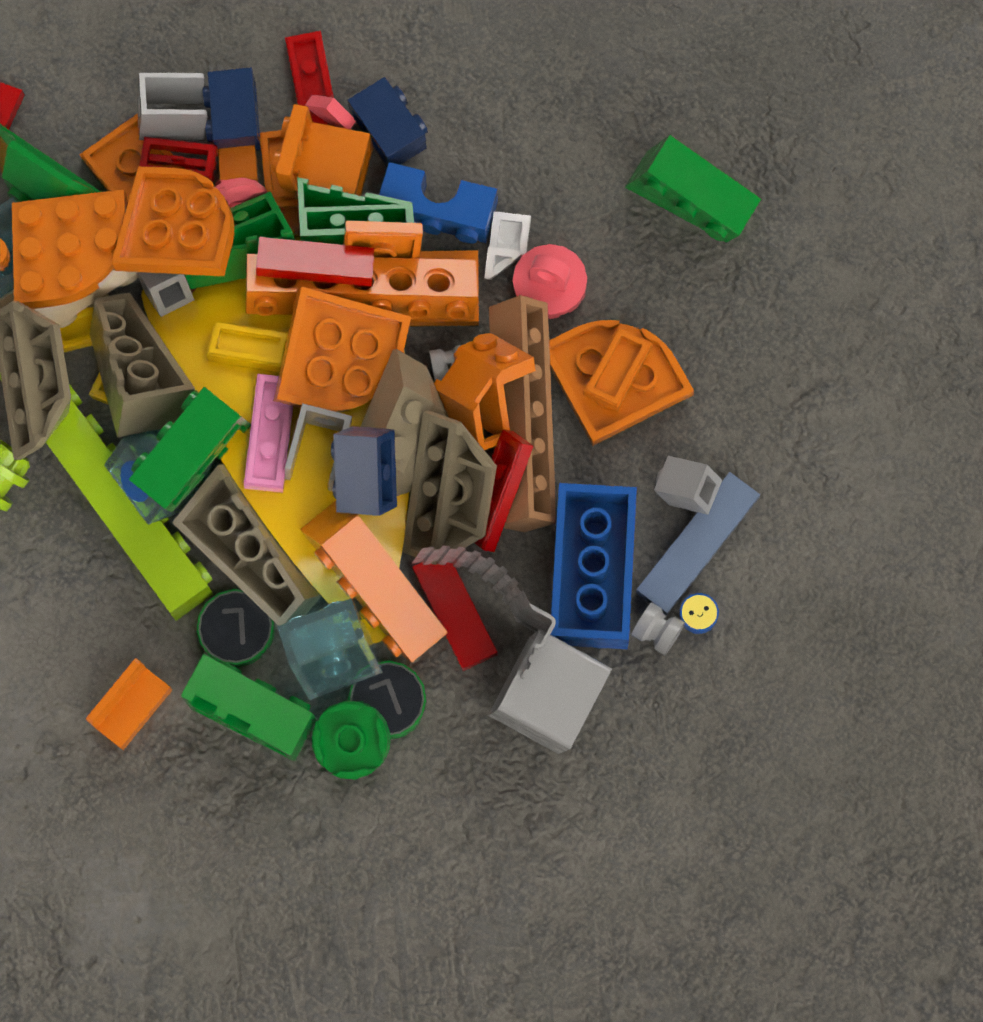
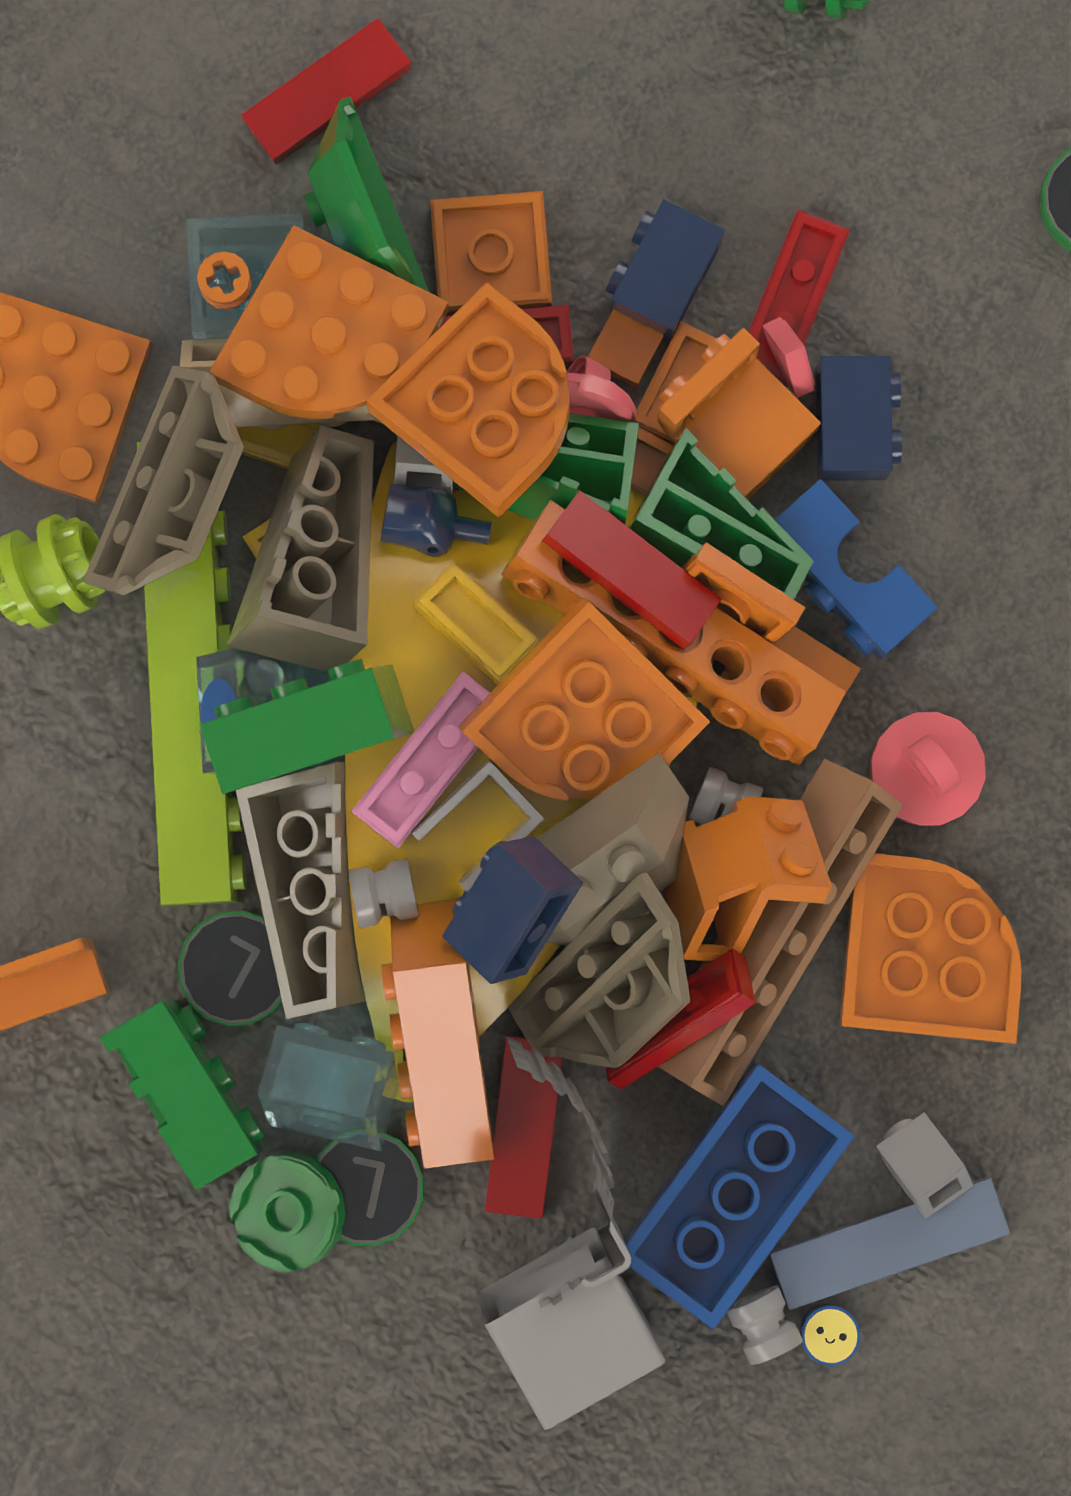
camera: 30 degrees right, 10 degrees up
(170, 89) = (598, 188): light grey piece -> none
(183, 147) = (587, 325): red tile -> none
(186, 311) = (428, 521): none -> dark blue piece
(290, 518) = (383, 893): none -> light grey wheel
(507, 242) = (906, 679): white slope -> none
(617, 368) = (936, 952): orange tile -> none

